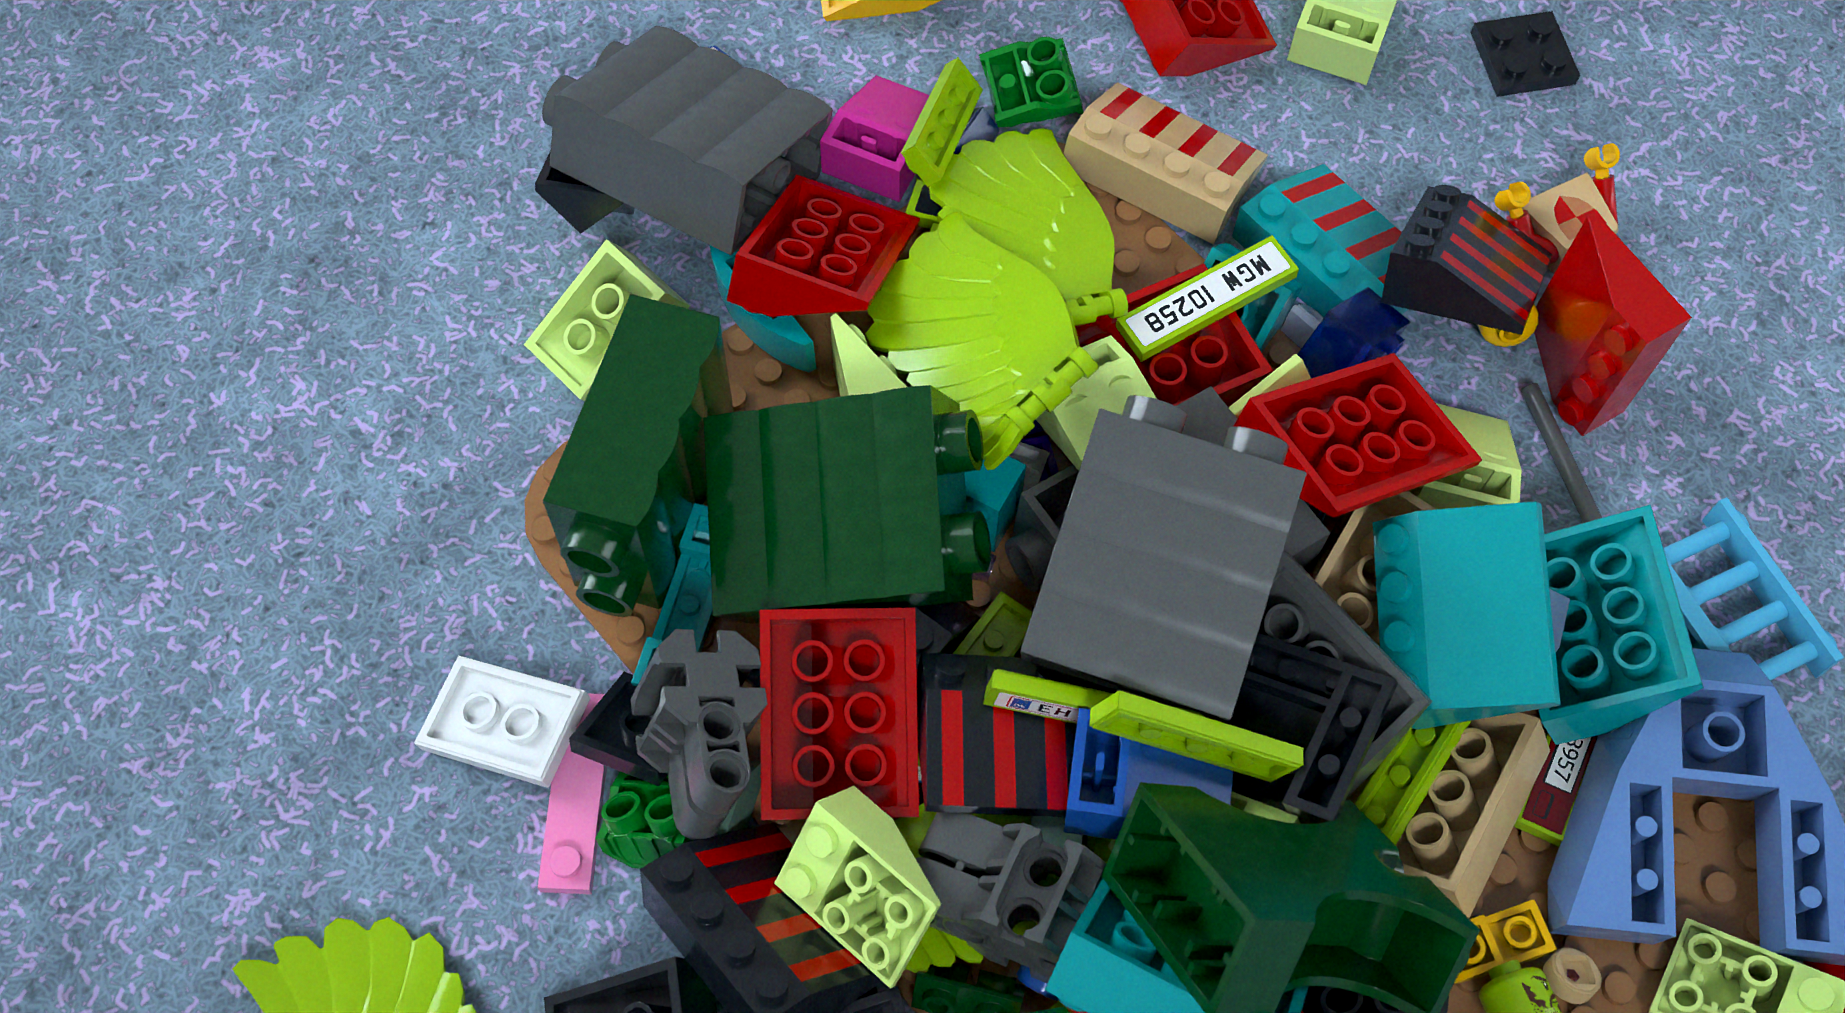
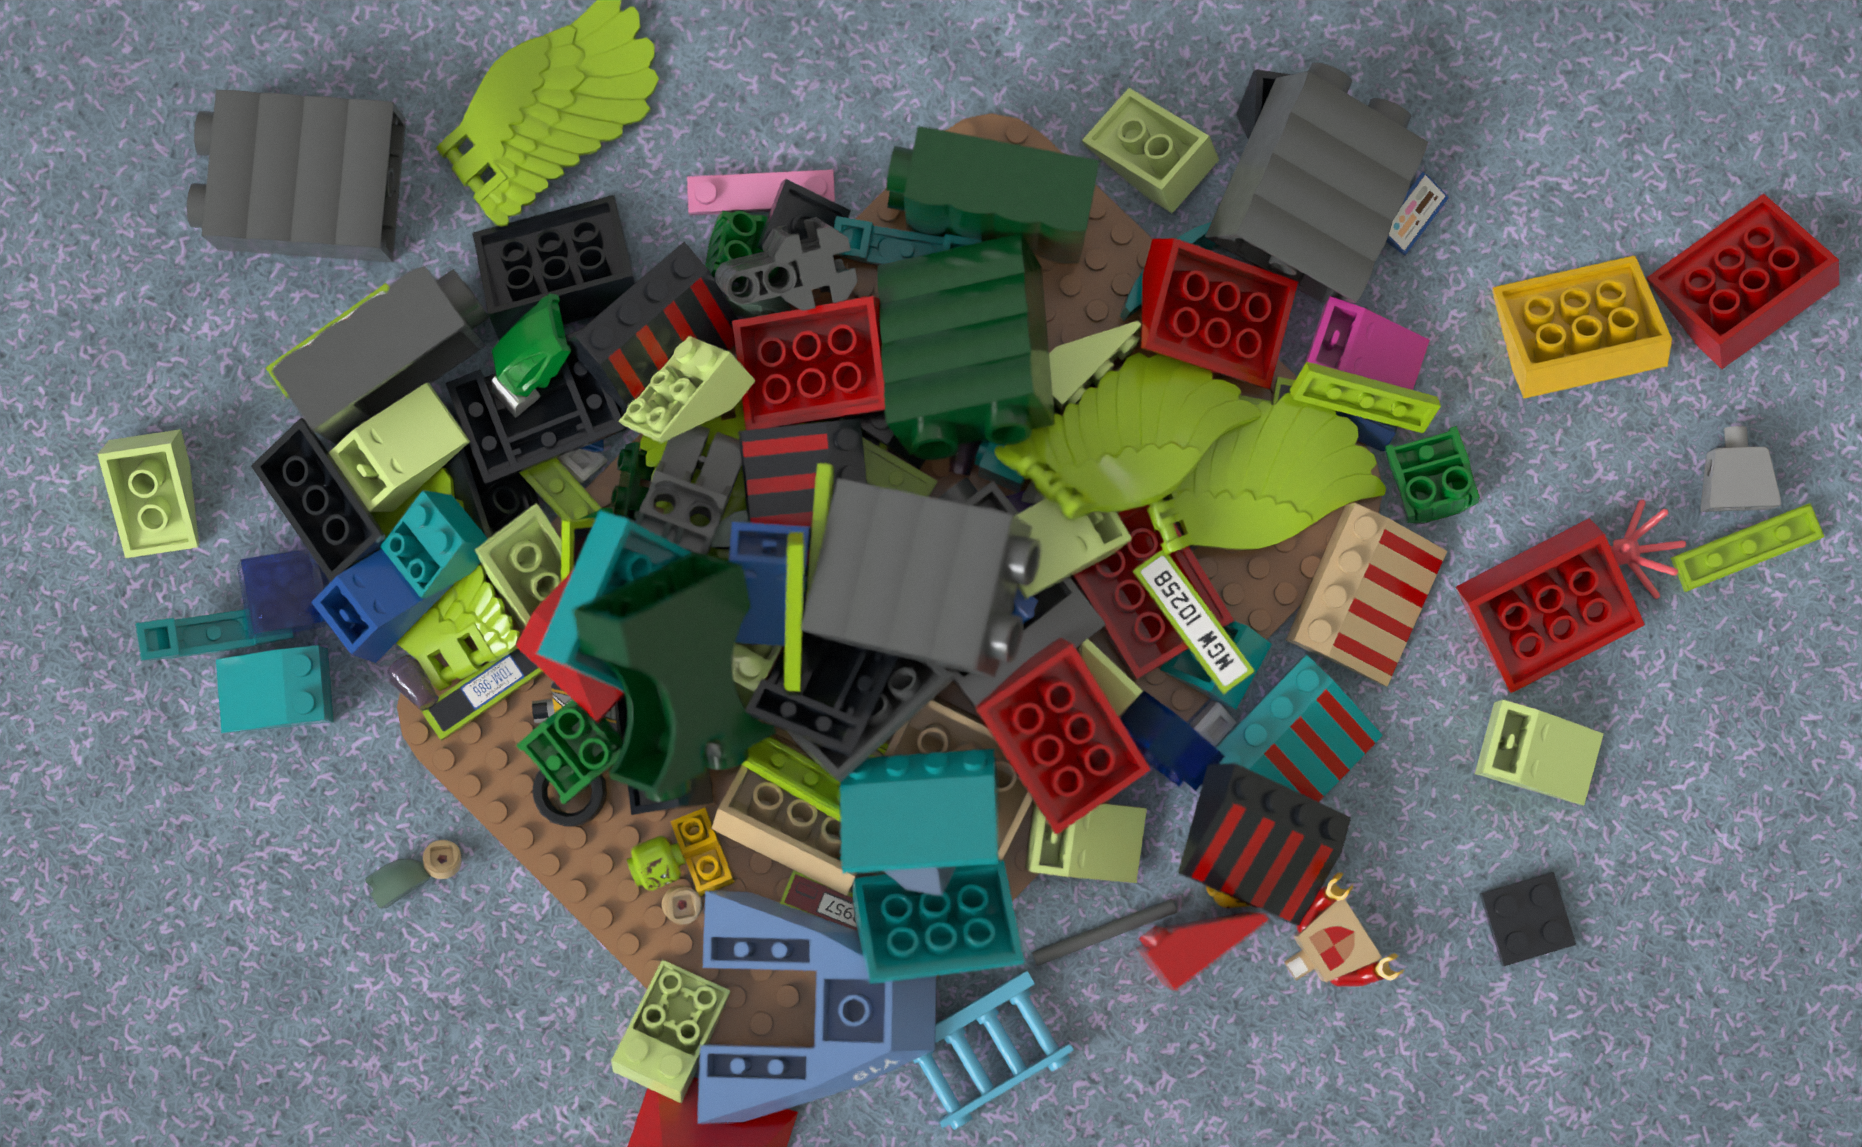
camera: 90 degrees right, 20 degrees up
(503, 721) = (806, 130): white tile -> none

